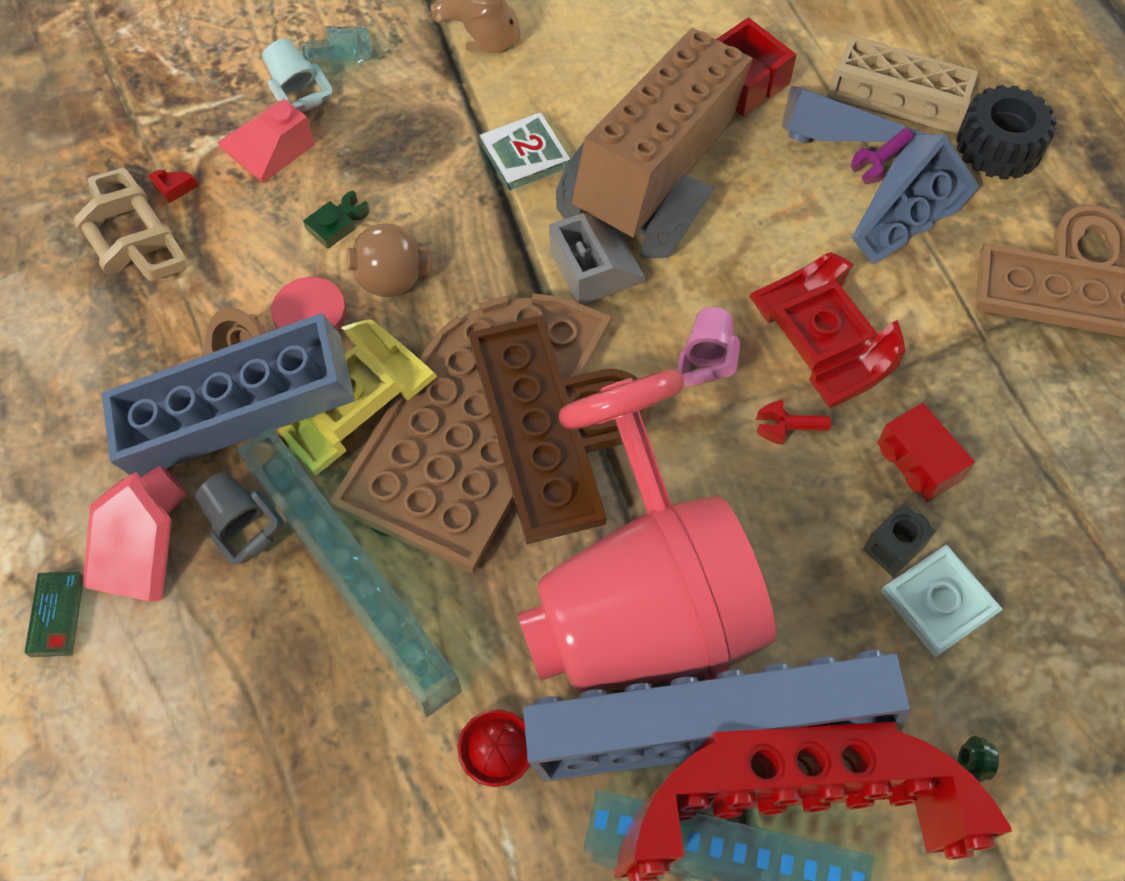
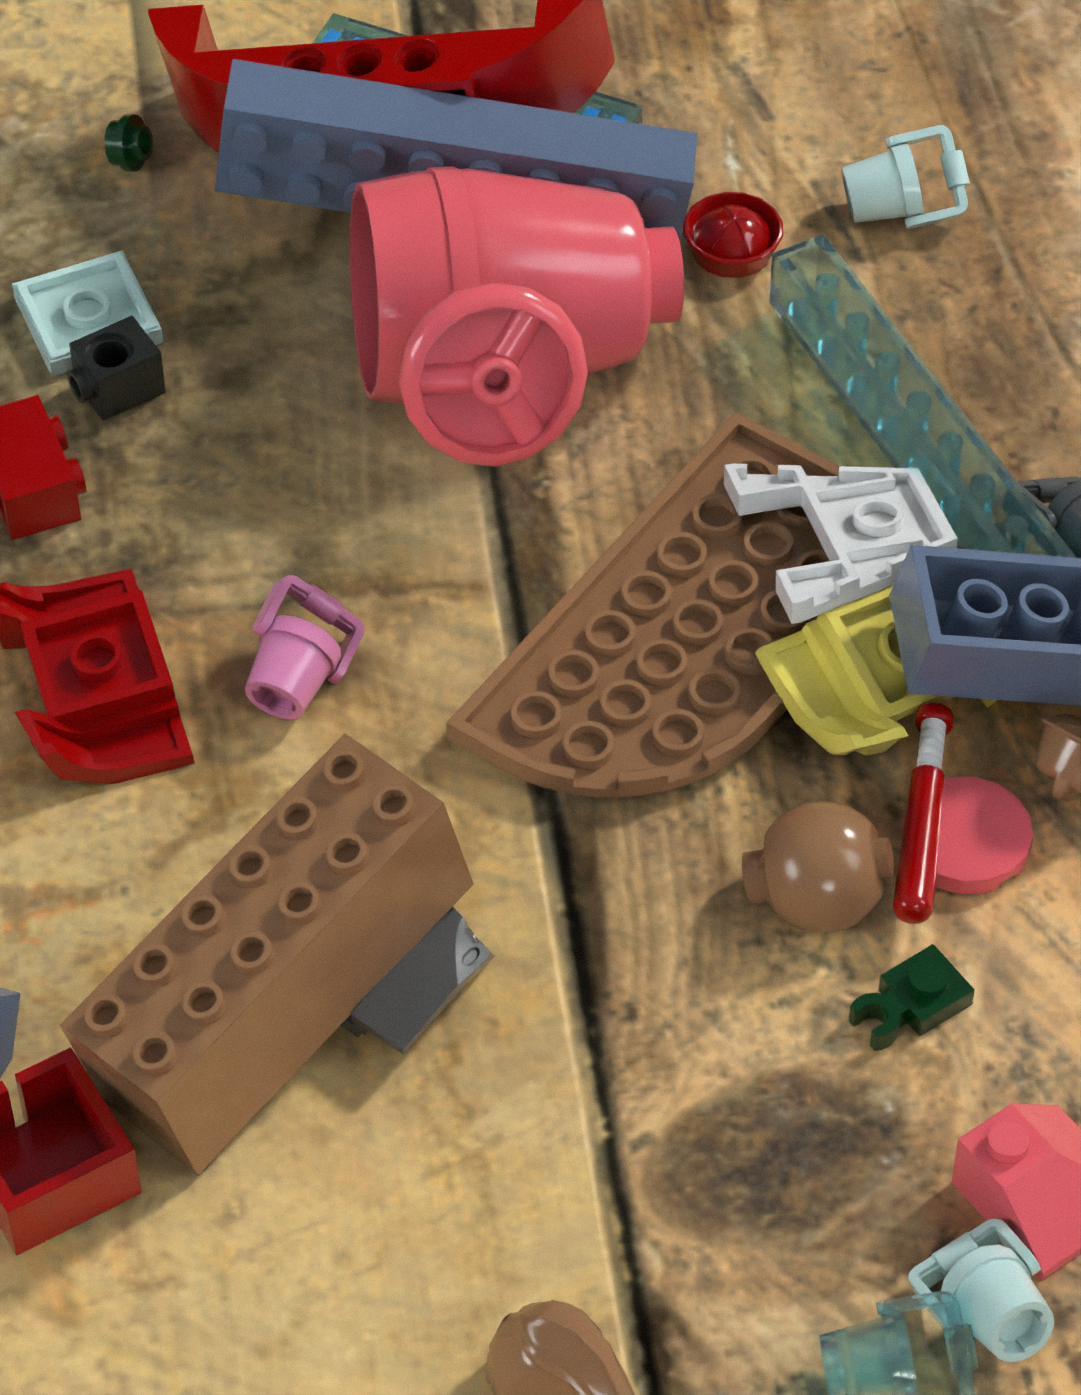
camera: 170 degrees left, 10 degrees down
(333, 278) = (921, 832): none -> red piece
(369, 463) = (861, 519): none -> white wing
(379, 811) = (889, 183): none -> light aqua piece
(524, 151) = (531, 1084): tile -> none
(541, 457) = (606, 566): reddish brown plate -> none
(592, 257) = (479, 801): light grey slope -> none
(788, 422) = (212, 554): red bar -> none

